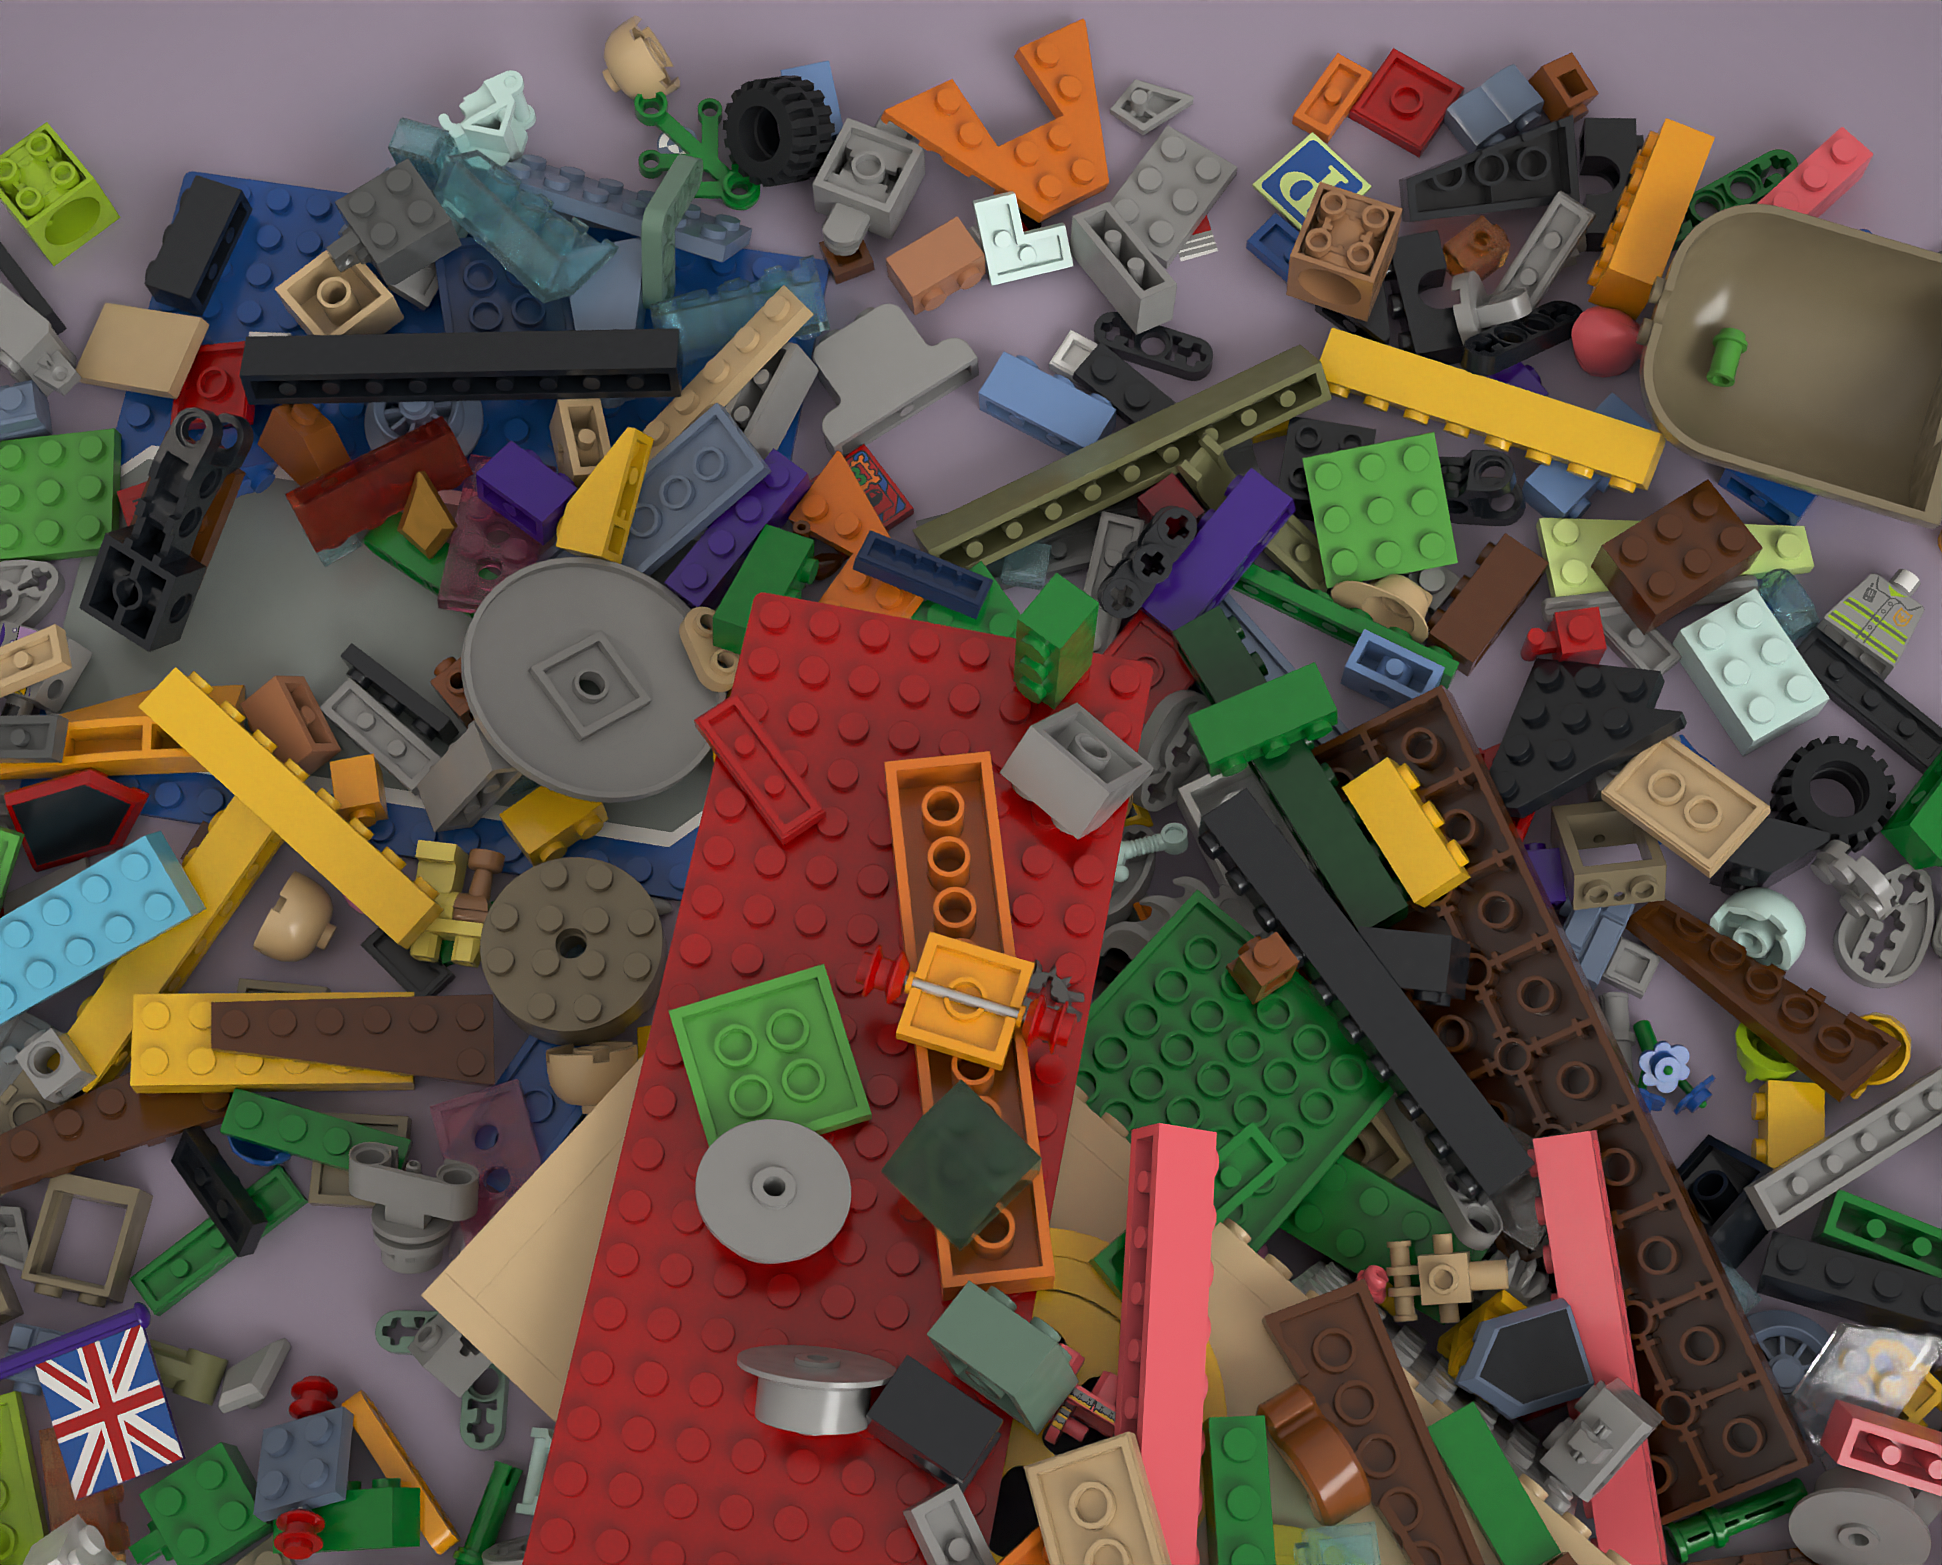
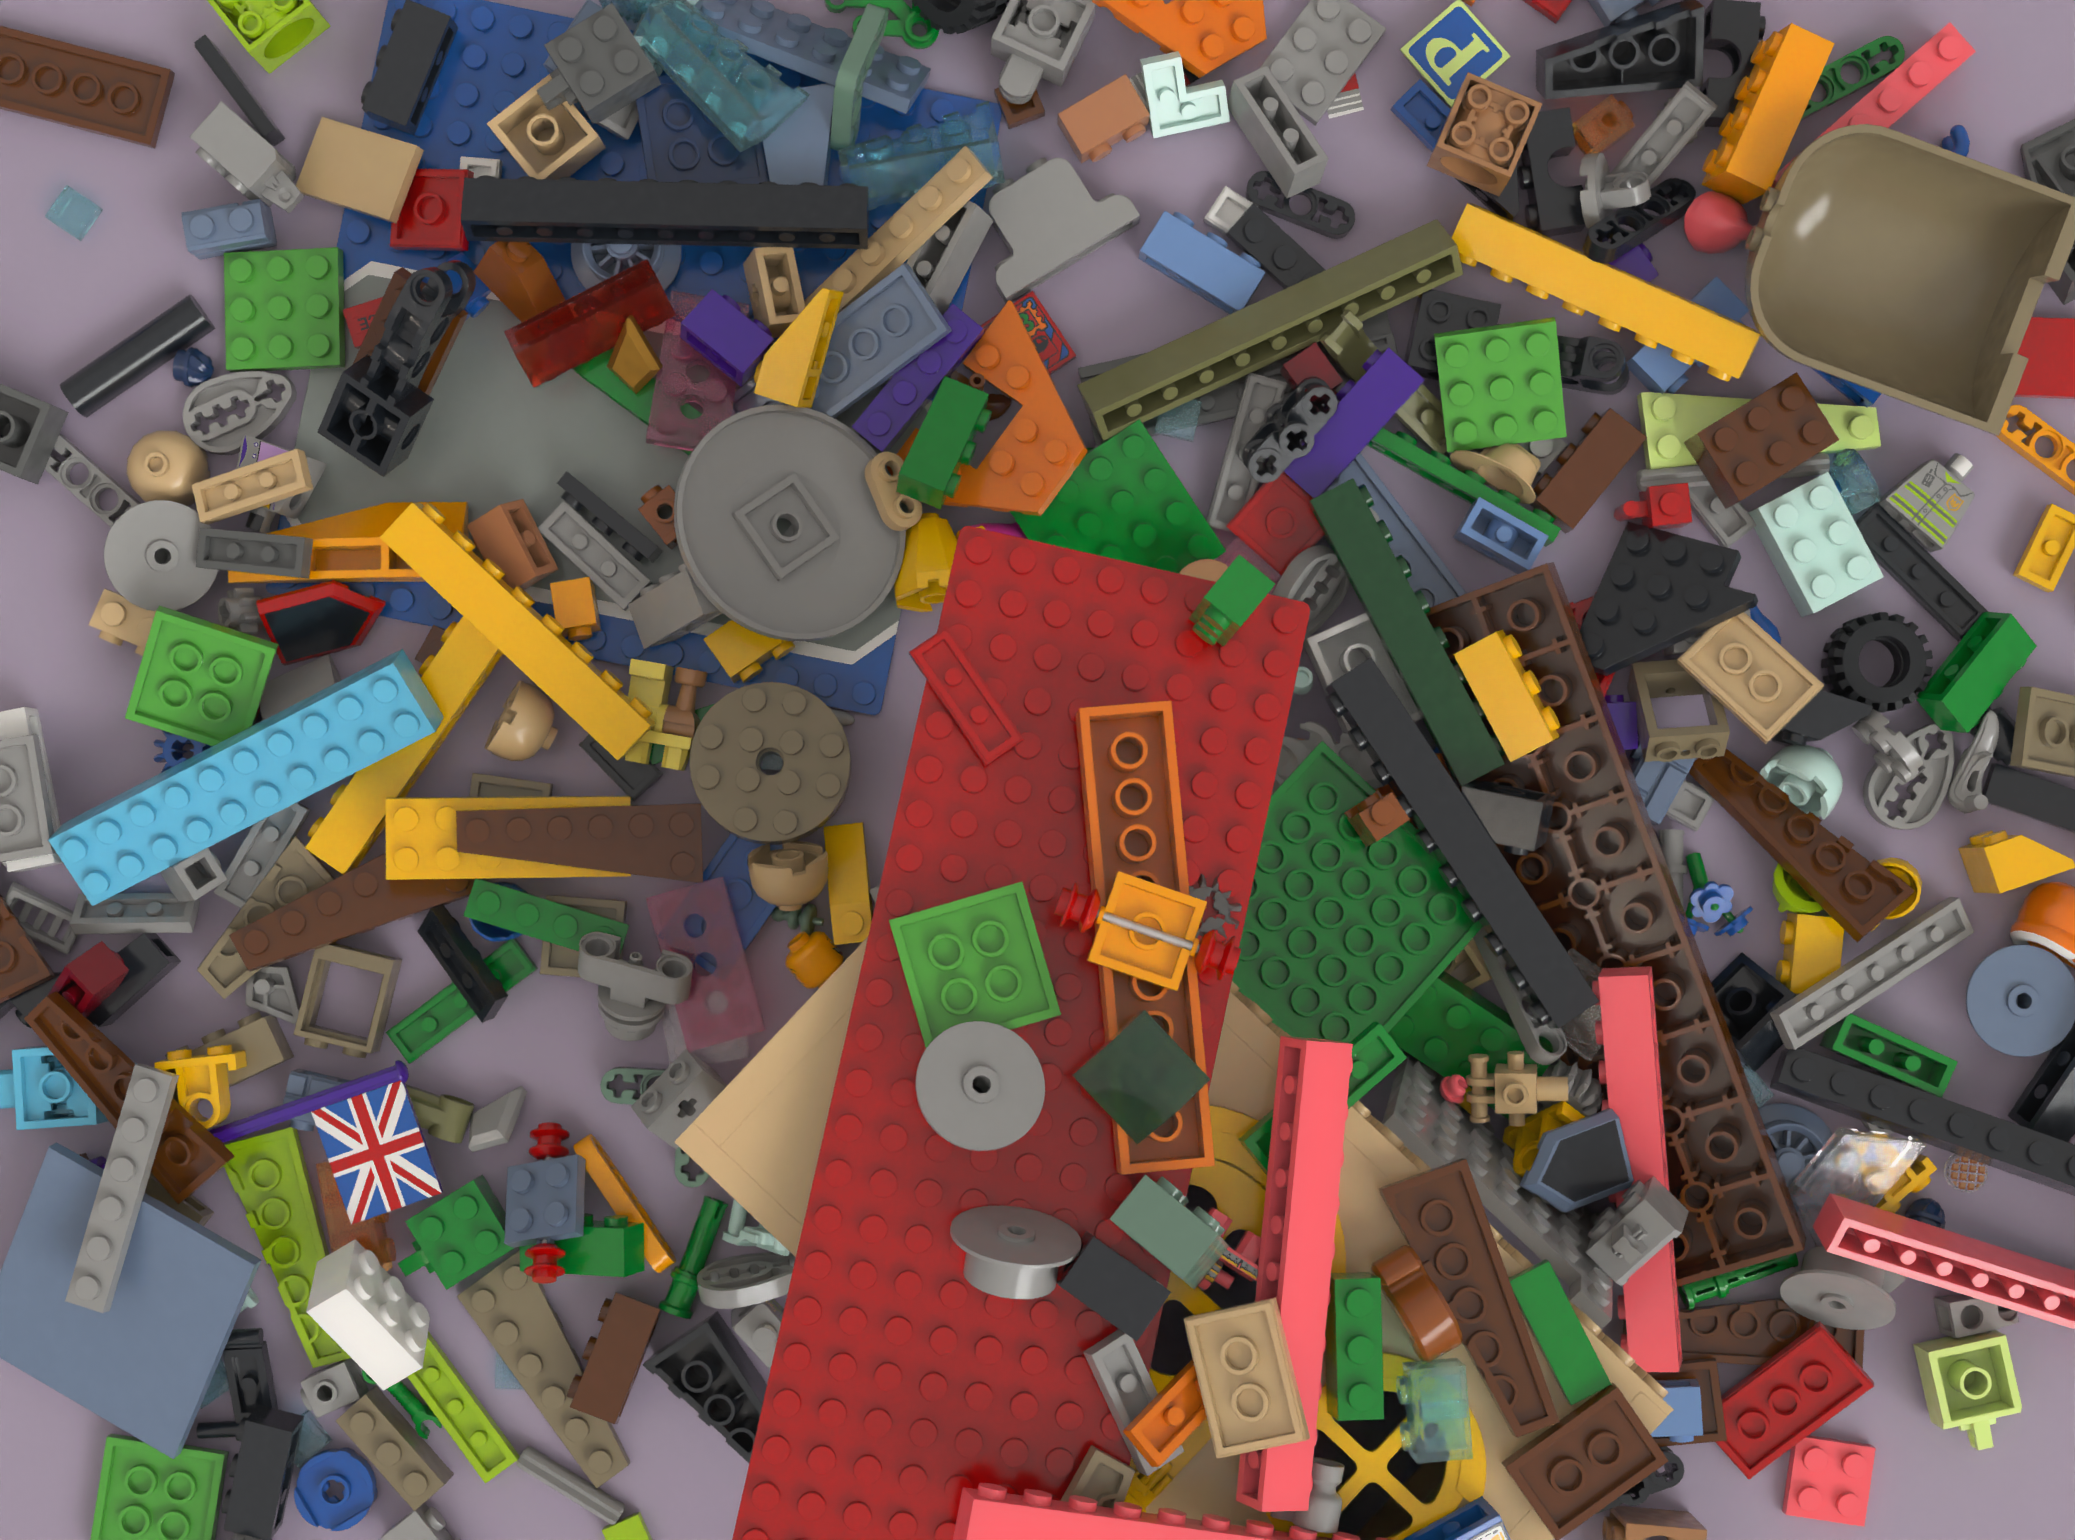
camera: 10 degrees left, 15 degrees up
(71, 1073) = (332, 857): light grey brick -> none
(922, 574) = (1088, 436): dark blue plate -> none
(1075, 770) = (1243, 709): light grey slope -> none
(1263, 721) = (1389, 594): green brick -> none
(1728, 348) = (1823, 249): bright green pin -> none

